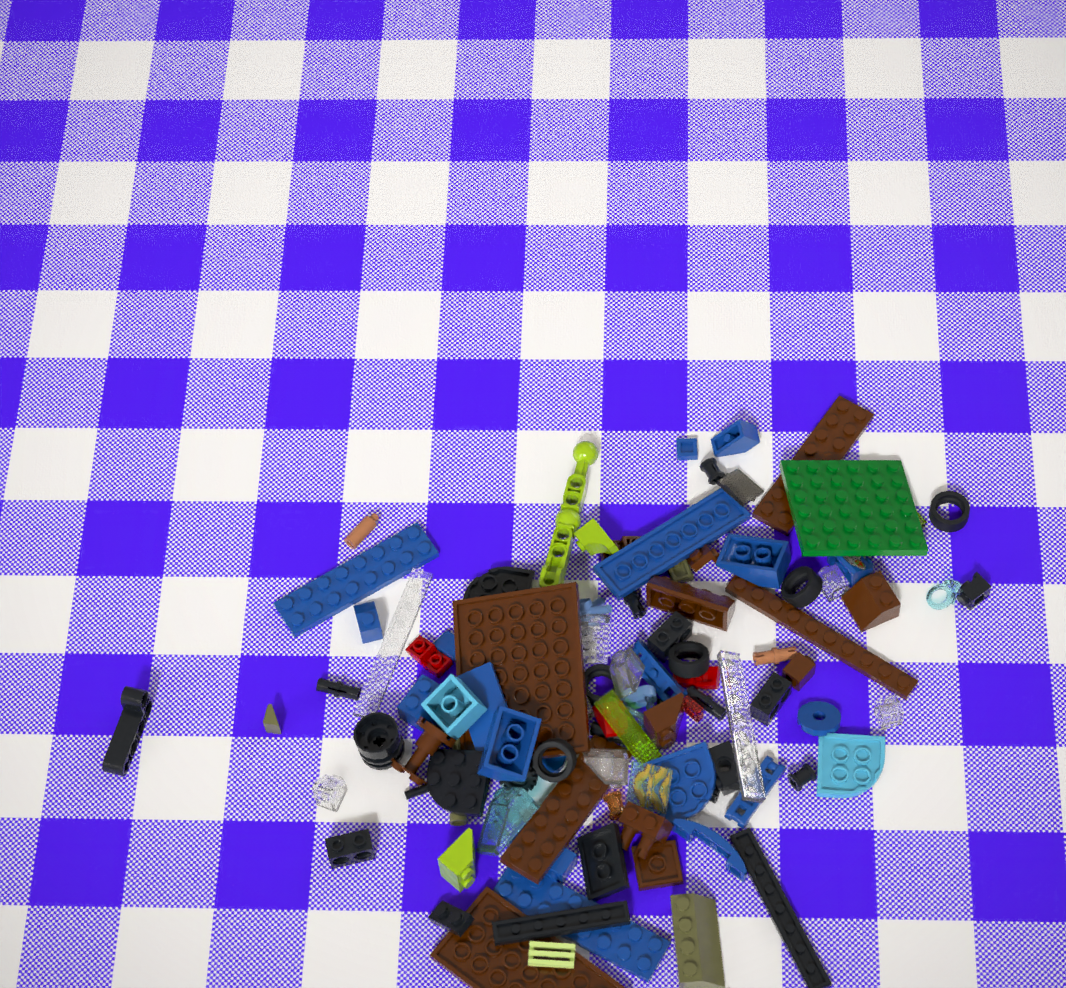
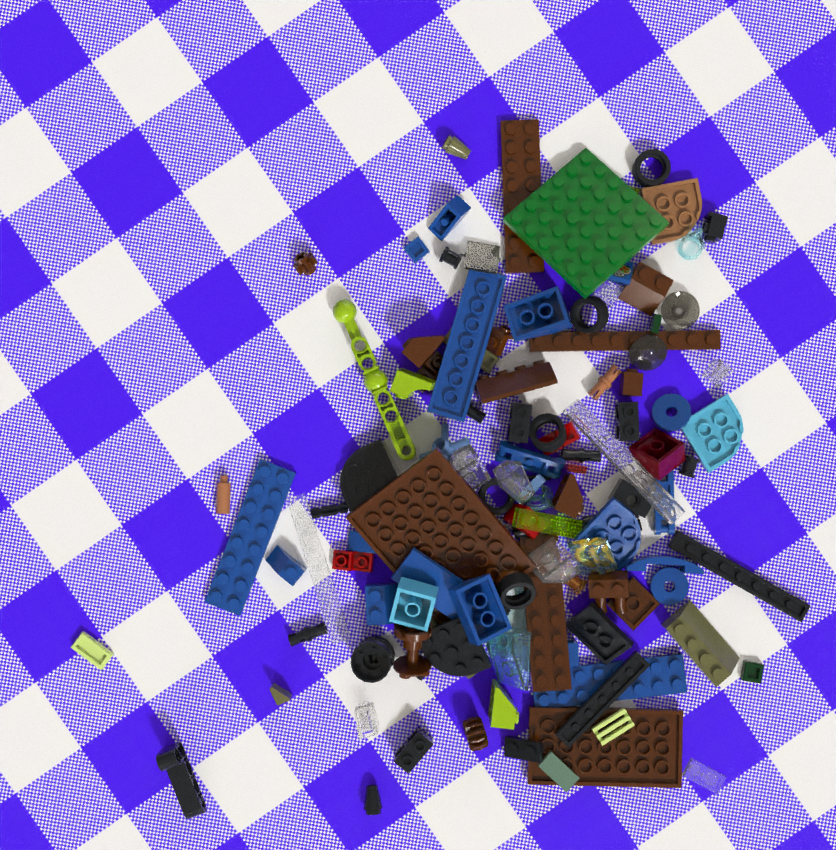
camera: 40 degrees left, 30 degrees up
(145, 580) = (92, 650): none -> yellowish green tile
(274, 871) = (372, 800): none -> black cone
(417, 871) = (475, 733): none -> reddish brown gear
(438, 600) = (329, 510): none -> black axle
(468, 959) = (558, 771): none -> sand green tile
(581, 398) = (305, 263): none -> reddish brown gear
(631, 517) = (422, 348): none -> reddish brown slope
(707, 860) = (679, 590): none -> blue tile
(779, 742) = (658, 453): none -> dark red slope
(783, 392) = (455, 147): none -> olive cone
(833, 653) = (647, 352): none -> clear smoke dish
(859, 634) = (655, 322): none -> dark green tile
(891, 631) = (688, 306): none -> clear smoke dish
(948, 556) = (678, 203): none -> medium nougat plate

